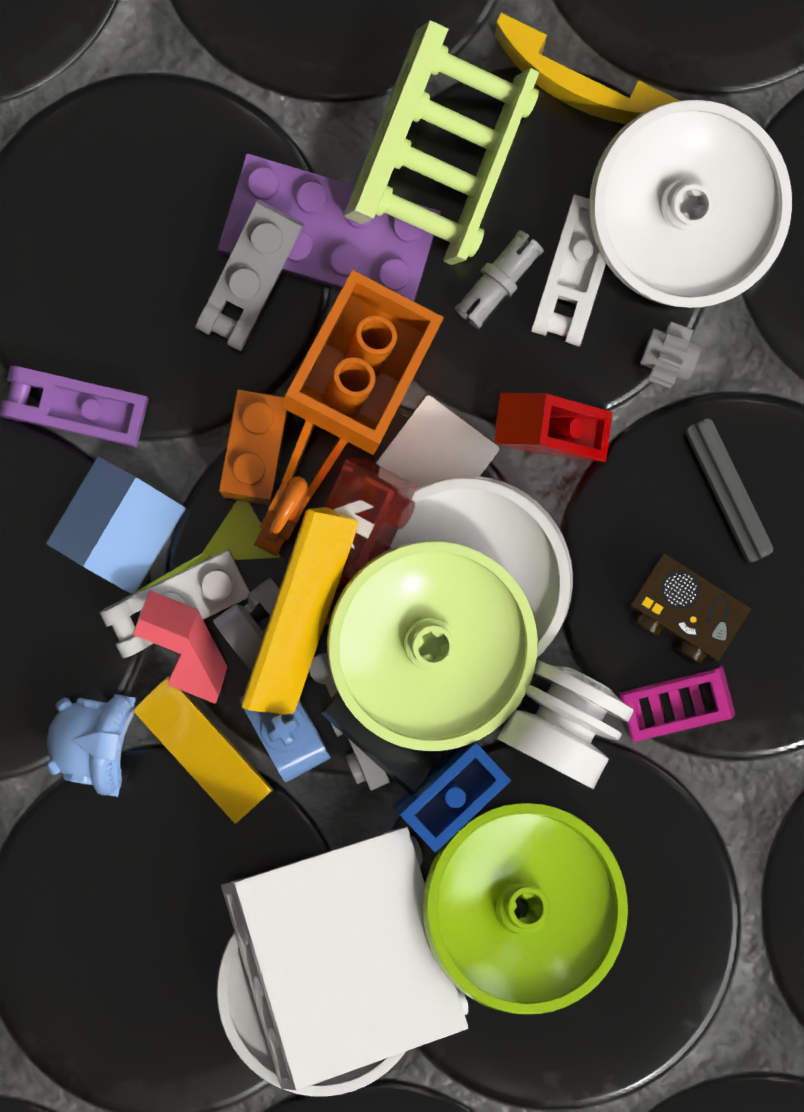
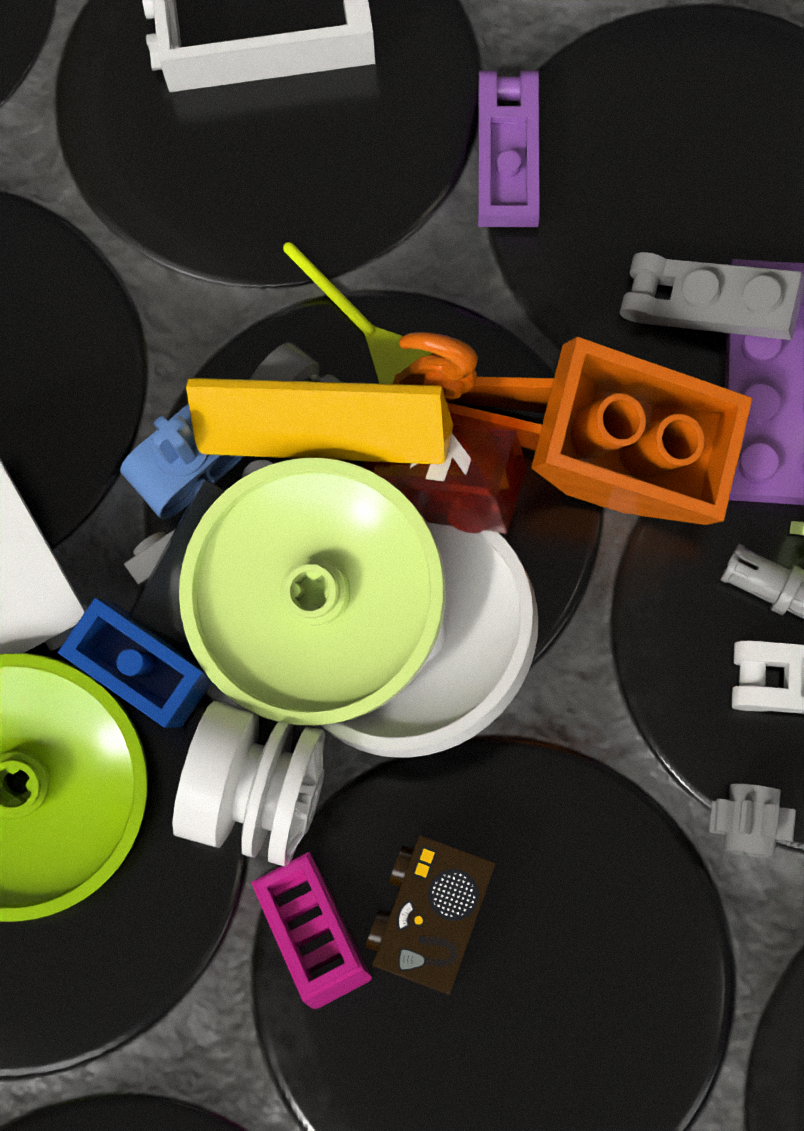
camera: 85 degrees right, 10 degrees down
(88, 741) = (126, 231): light blue helmet -> none
(116, 525) = (380, 225): light blue slope -> none
(180, 628) = (272, 307): coral slope -> none
(203, 750) = (145, 375): yellow slope -> none
(204, 586) = (309, 307): white plate -> none
(254, 448) = (513, 338): orange brick -> none
(437, 447) = (564, 563): white sticker -> none
(552, 426) = (623, 694): red slope -> none
(729, 490) = (597, 938): dark grey axle -> none

